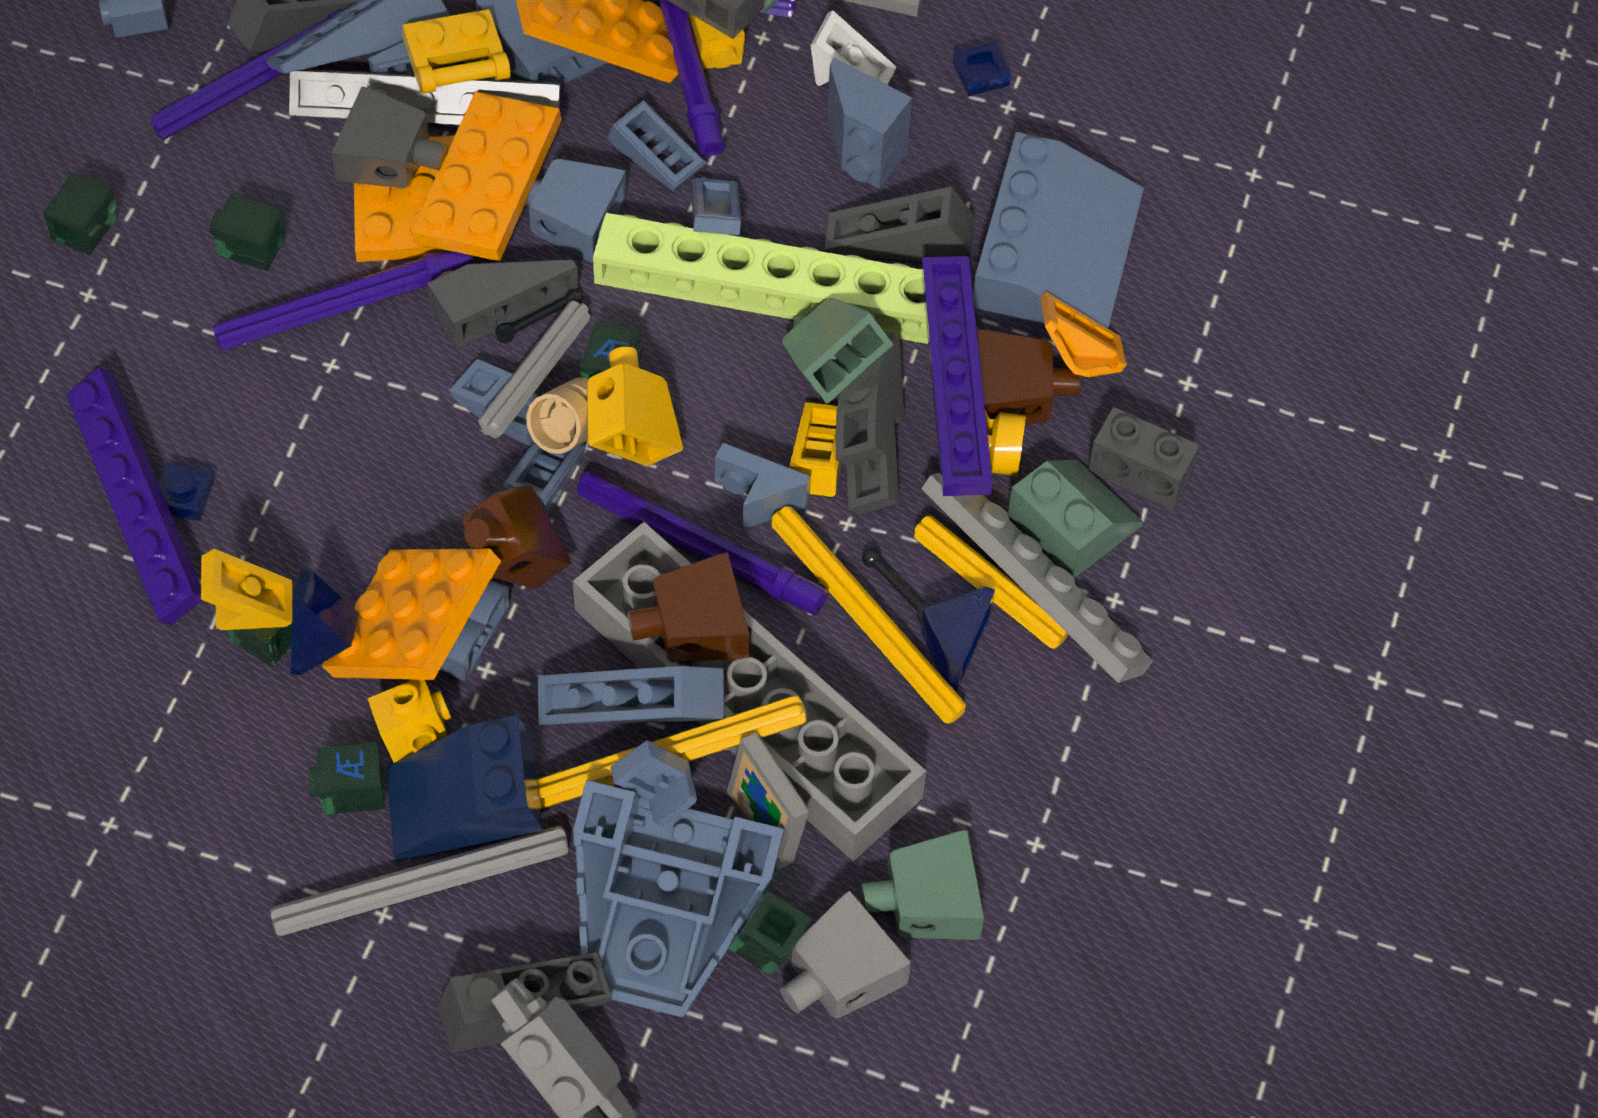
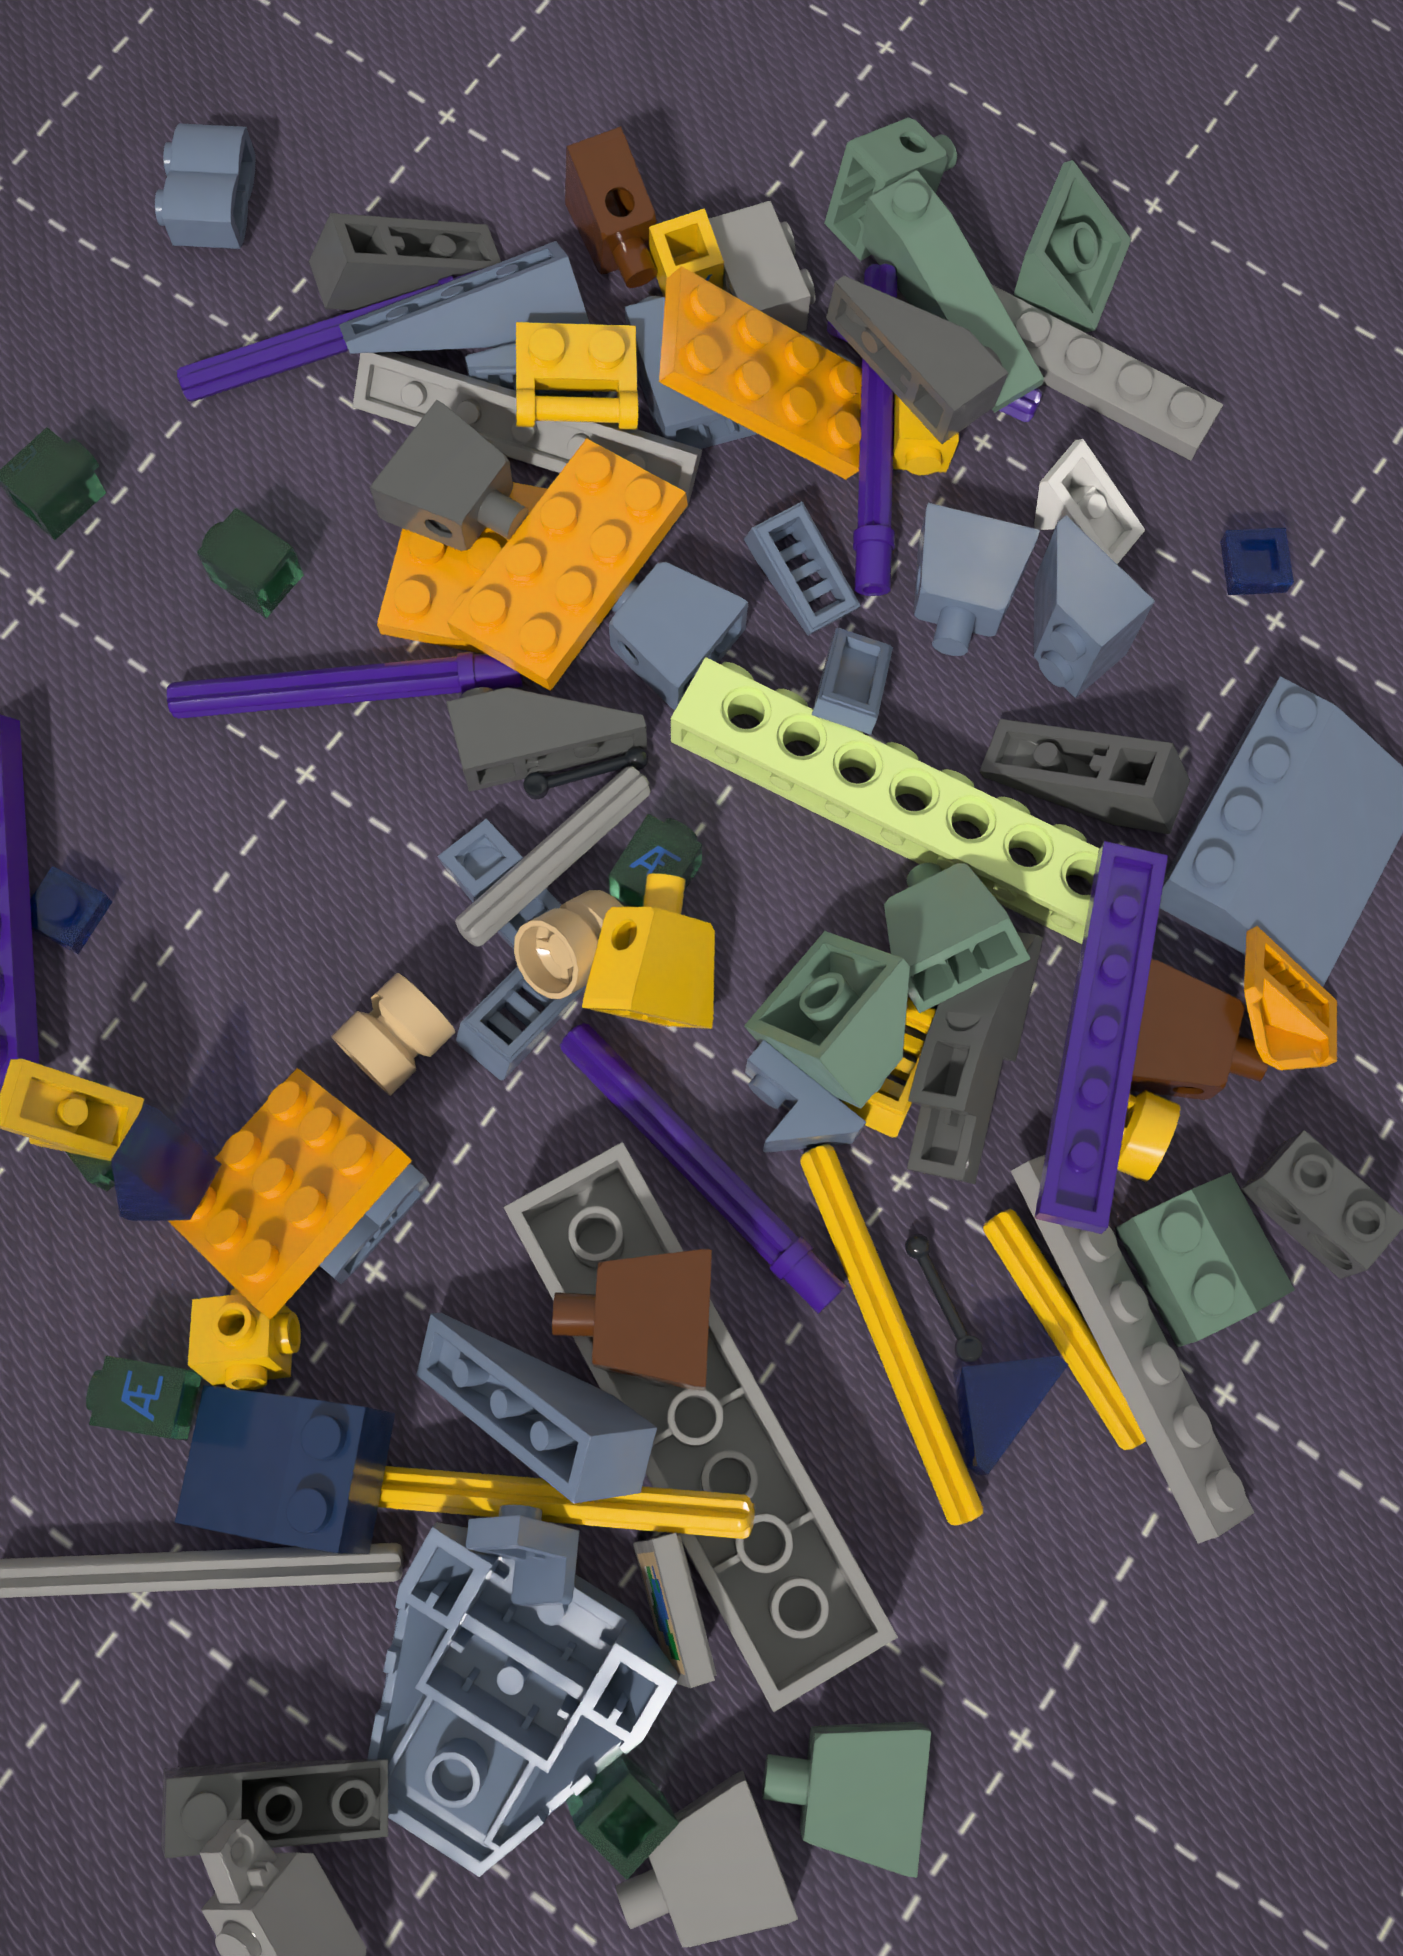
camera: 15 degrees right, 15 degrees up
(453, 495) = (393, 1033): none -> tan wheel
(519, 535) = (449, 1108): reddish brown torso -> none
(772, 411) = (839, 1016): none -> sand green slope
(777, 122) = (967, 574): none -> sand blue torso

